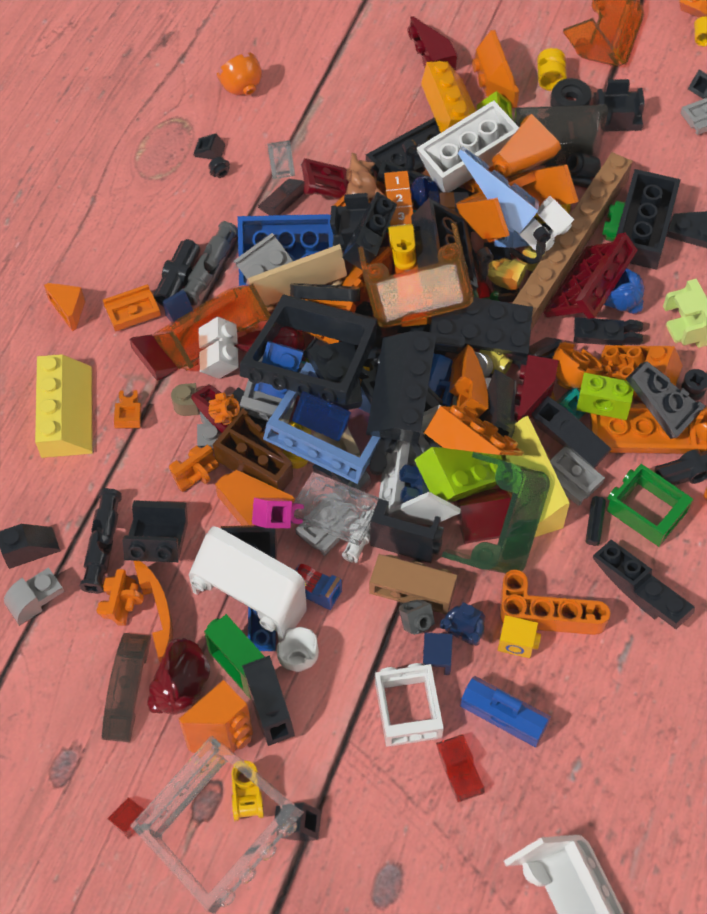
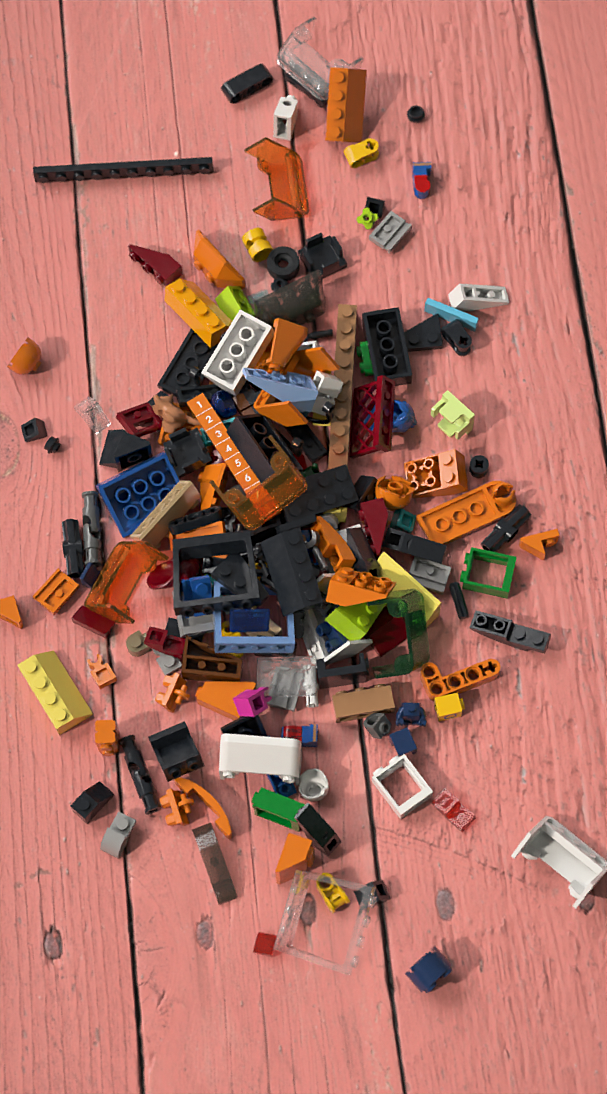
camera: 25 degrees left, 10 degrees up
(86, 477) = (107, 737): none -> orange brick
(178, 678) = (248, 842): dark red hair -> none
(222, 355) = (145, 600): white piece -> none
(224, 408) = (173, 641): orange gear -> none
(262, 257) = (132, 510): light grey plate -> none
(296, 197) = (131, 451): none -> black slope
(370, 230) = (205, 459): black slope -> none
(403, 246) = (233, 459): yellow piece -> none
(445, 374) = (312, 545): none -> flat silver piece
(505, 711) = (464, 760): blue piece -> none
(507, 273) = (312, 438): light yellow rock -> none
(583, 165) = (321, 321): black brick -> none
(605, 396) = (425, 508): lime brick -> none
(607, 331) = (400, 452): black hinge -> none
(666, 402) = (468, 494): black wing -> none
(689, 97) = (367, 223): none -> lime plate

